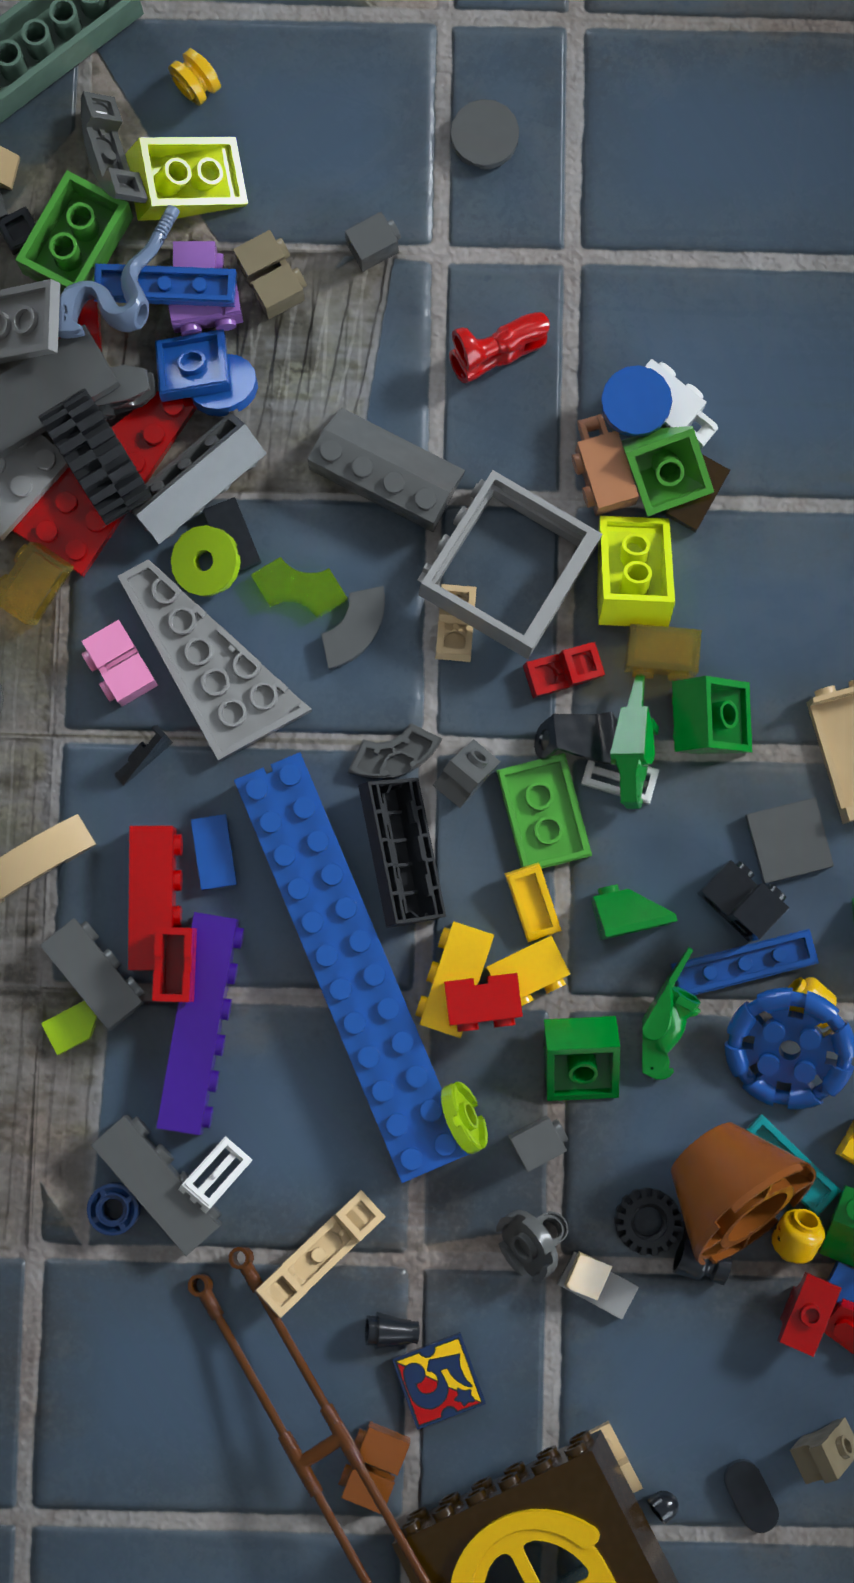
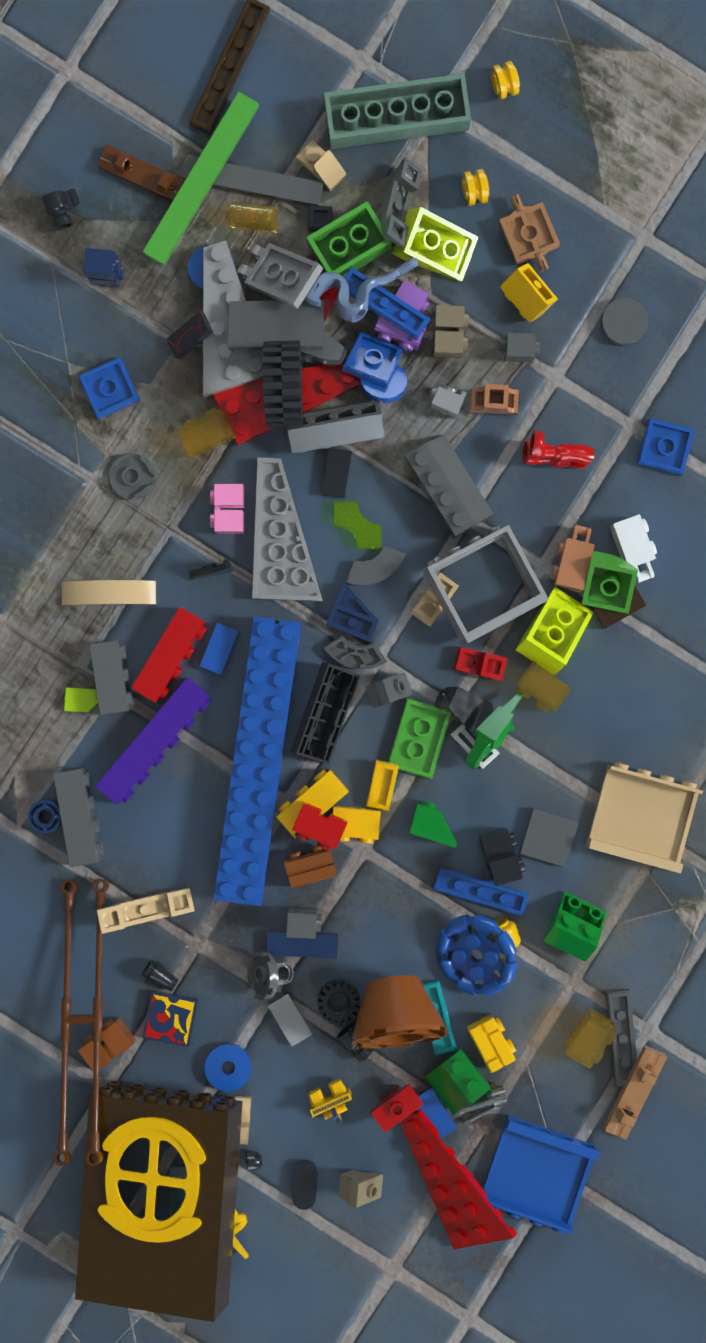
camera: 30 degrees right, 5 degrees up
(174, 964) = (158, 702): red brick -> none
(186, 561) = (301, 473): lime tile -> none
(197, 1194) = (96, 837): white tile -> none
(297, 95) = (529, 233): none -> medium nougat plate
(319, 362) = (446, 400): none -> light grey brick
(341, 167) = (528, 293): none -> yellow brick
(362, 707) = (352, 615): none -> dark blue wing
(378, 325) = (494, 399): none -> nougat brick
(461, 1118) = (268, 884): lime tile -> none
(503, 1065) = (309, 867): none -> dark orange brick
(554, 1421) = (228, 1081): none -> blue tile
(555, 1176) = (322, 947): none -> dark blue tile
(582, 1058) = (357, 889): green slope -> none
(587, 1275) = (286, 1011): tan slope -> none
(632, 258) = (665, 446): none -> blue tile
(636, 401) = (615, 534): blue tile -> none
(666, 1022) = (416, 898): green animal -> none
(706, 1373) = (339, 1095): none -> yellow hips
(711, 716) = (548, 741): green slope -> none
(798, 1236) = (417, 1060): yellow head -> none

